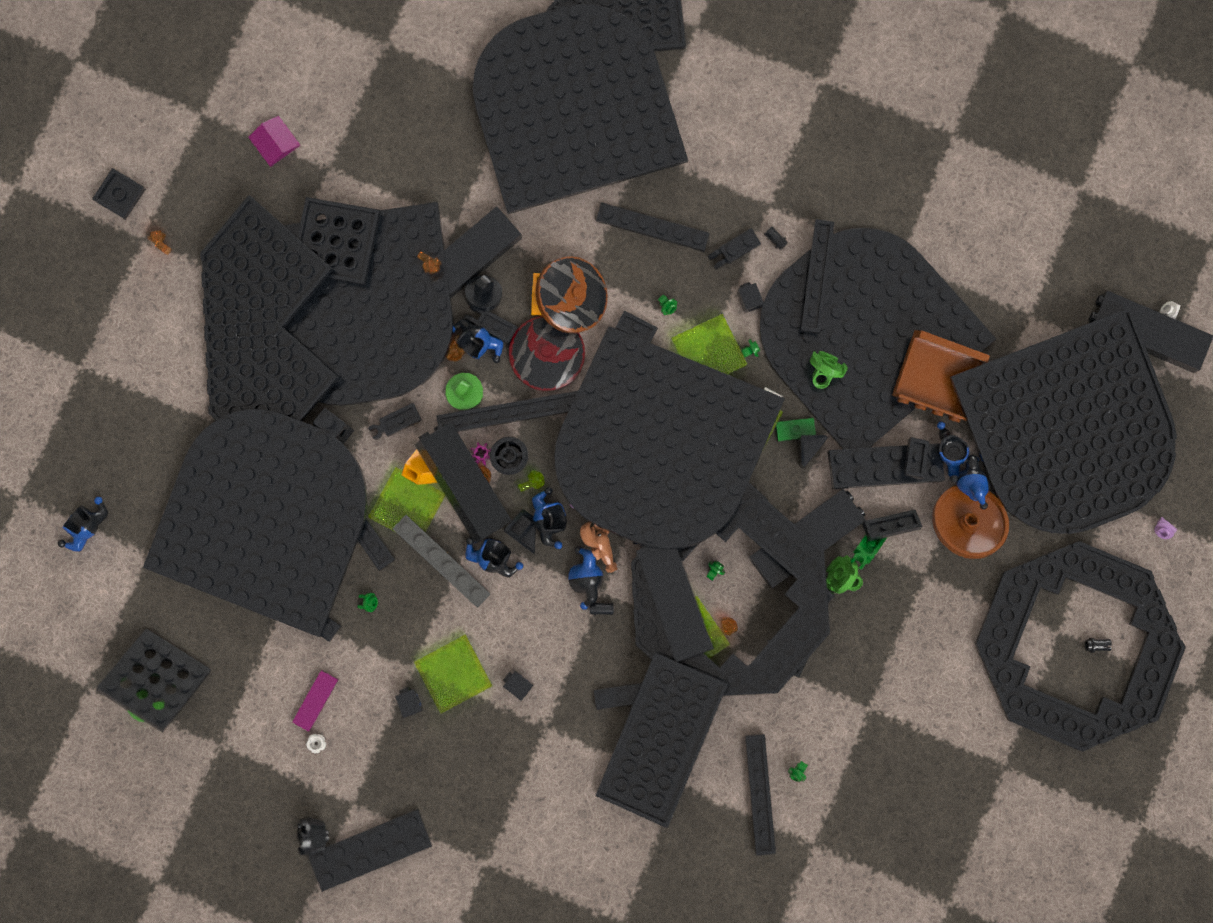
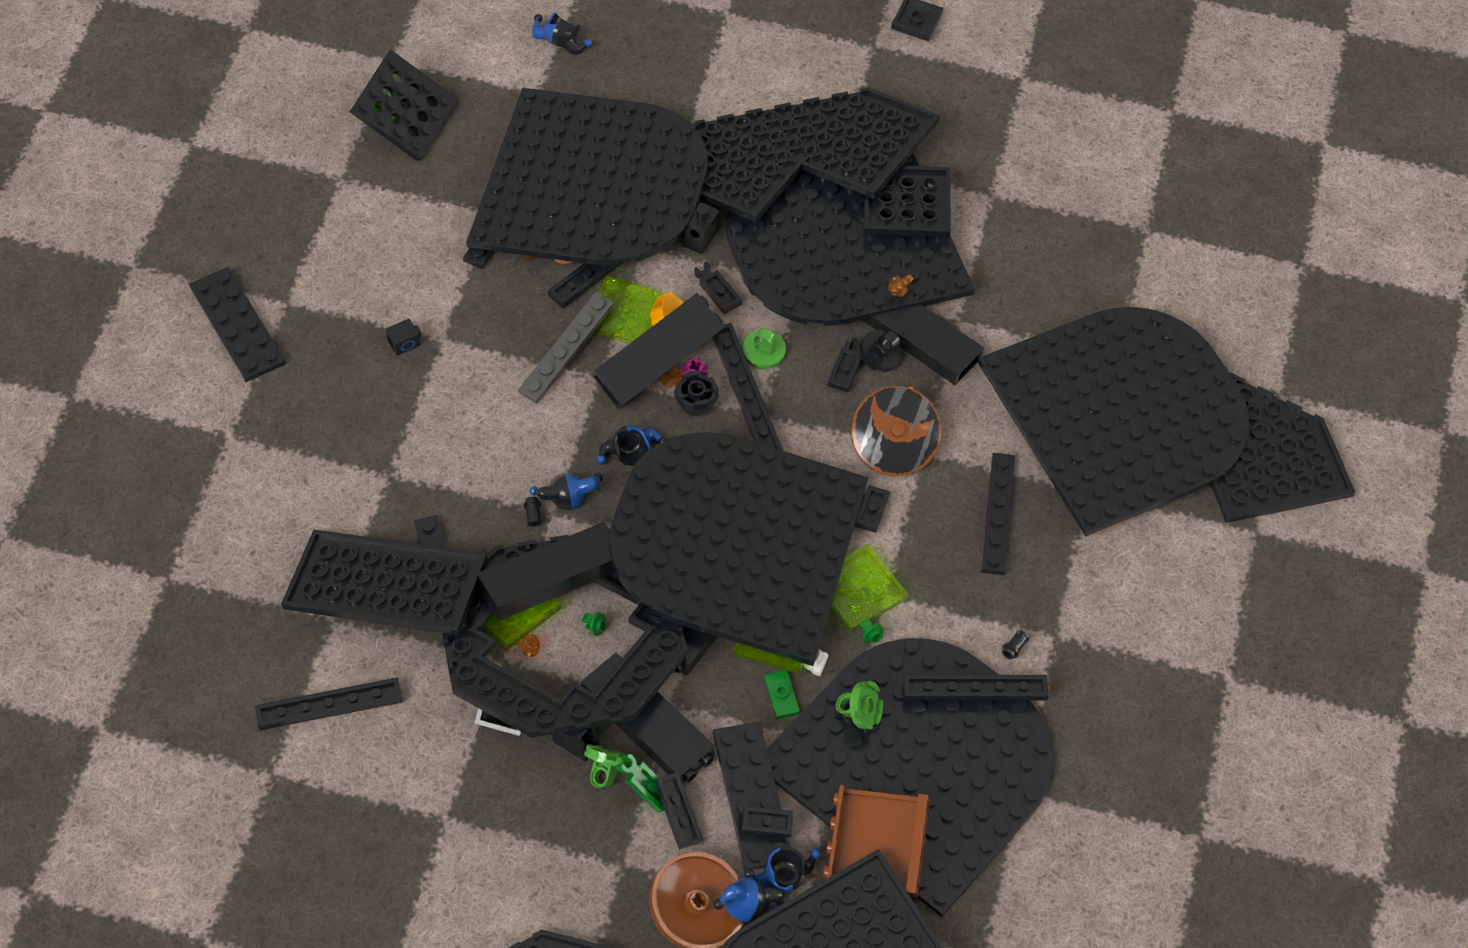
camera: 80 degrees right, 25 degrees down
(157, 238) = (877, 55): clear orange plate -> none
(273, 140) = (1010, 142): magenta slope -> none
(311, 743) = (350, 255): white plate -> none
(311, 836) = (248, 262): black cone -> none
(315, 701) = (397, 254): magenta tile -> none
(369, 603) = (511, 288): green plate -> none
(453, 674) = (440, 377): clear neon green plate -> none
(455, 353) = (806, 332): clear orange plate -> none
(476, 340) = (824, 351): black piece -> none
(492, 557) = (578, 395): black piece -> none
(517, 685) = (433, 437): black brick -> none
(523, 530) = (610, 418): black slope -> none
(534, 481) = (672, 428): clear neon green plate -> none
(545, 356) = (819, 422): dish -> none
(599, 544) = (604, 498): nougat animal -> none
(668, 306) = (905, 536): green plate -> none
(736, 248) = (992, 603): black hinge -> none
(750, 297) = (934, 622): black brick -> none
(797, 773) = (361, 743): green plate -> none
(808, 446) = (759, 705): black slope -> none

